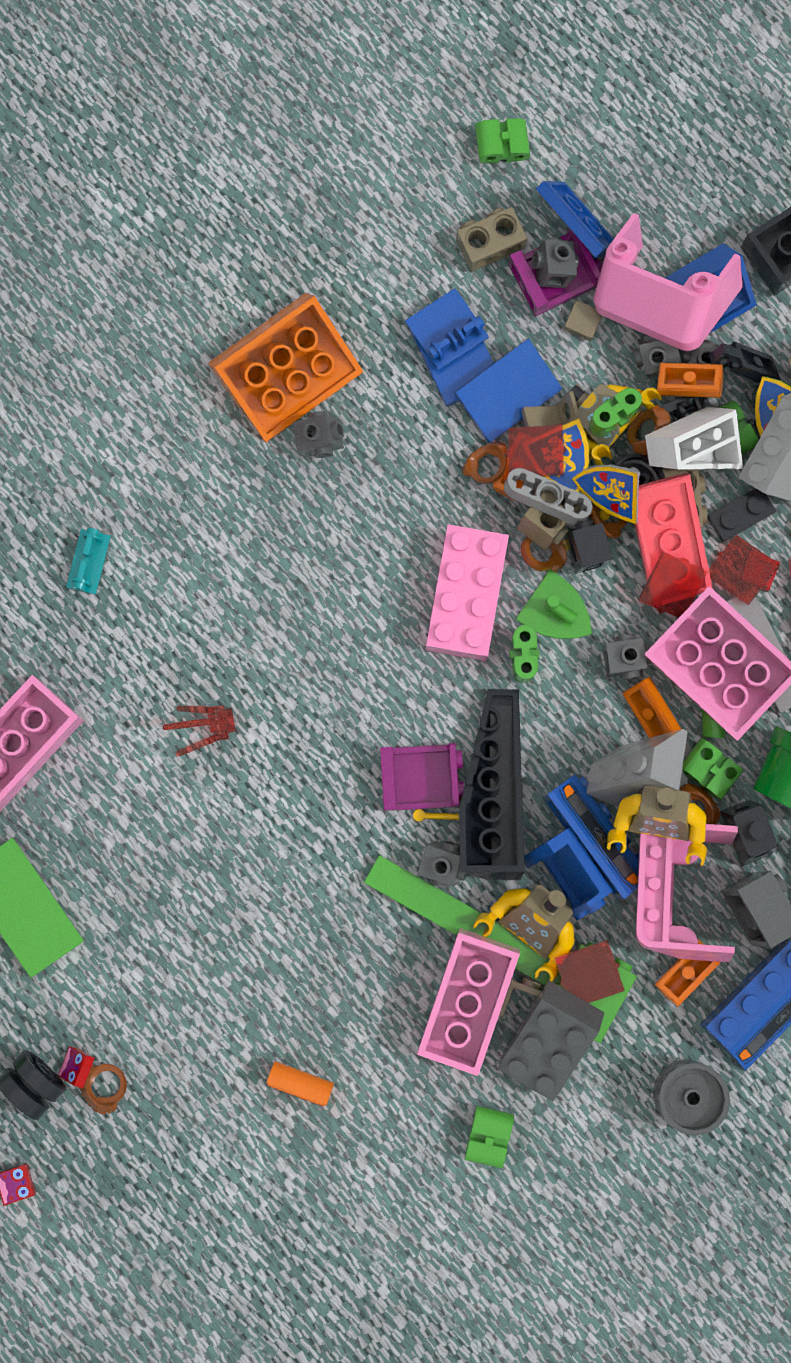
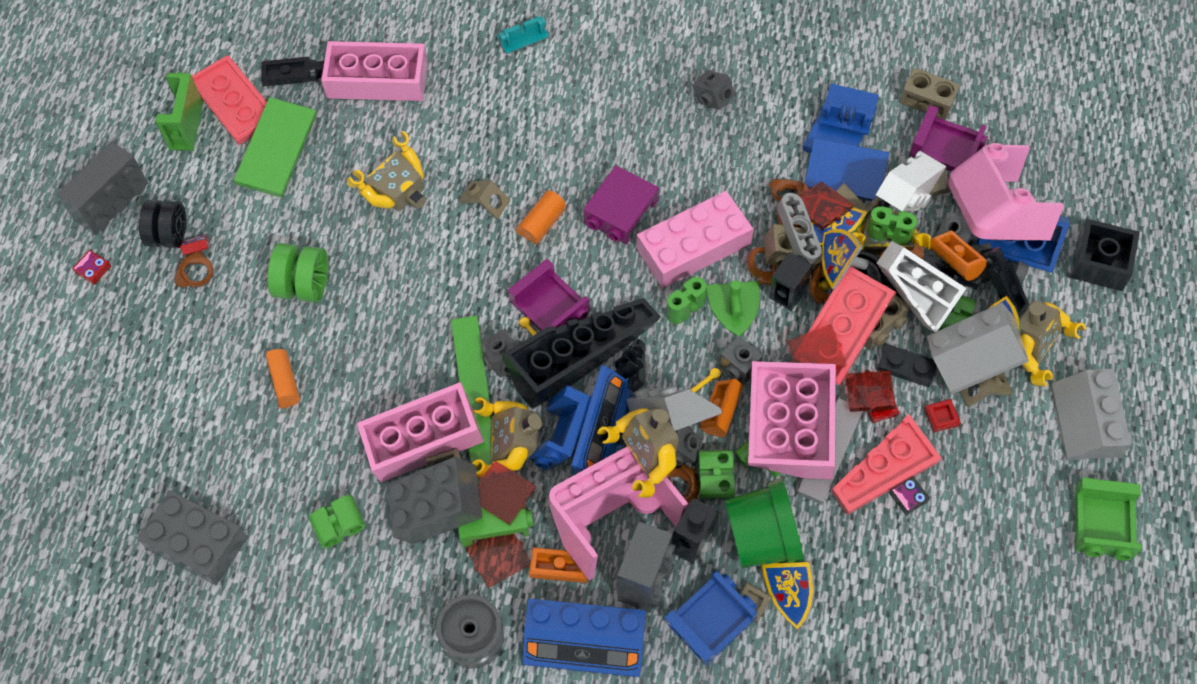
camera: 55 degrees right, 20 degrees down
(165, 821) = (394, 181): none -> torso
(194, 1001) = (298, 272): none -> bright green wheel
(219, 721) = (485, 167): clear red plant -> none
(249, 749) = (481, 193): none -> dark tan bracket
(286, 366) = (739, 43): orange slope -> none
(319, 712) = (541, 217): none -> orange brick
(372, 629) = (620, 204): none -> magenta panel
(403, 1279) = (192, 537): none -> dark grey brick
(502, 140) = (995, 57): bright green piece -> none
(542, 755) = (632, 366): none -> black piece
(555, 263) = (951, 132): dark grey brick -> none
(576, 216) = (992, 116): blue tile -> none
(586, 355) = (910, 185): none -> white wedge
(611, 687) = (714, 374): none -> yellow hinge
(636, 1019) = (498, 558): none -> clear red piece
(737, 333) = (1021, 270): none -> dark grey tile

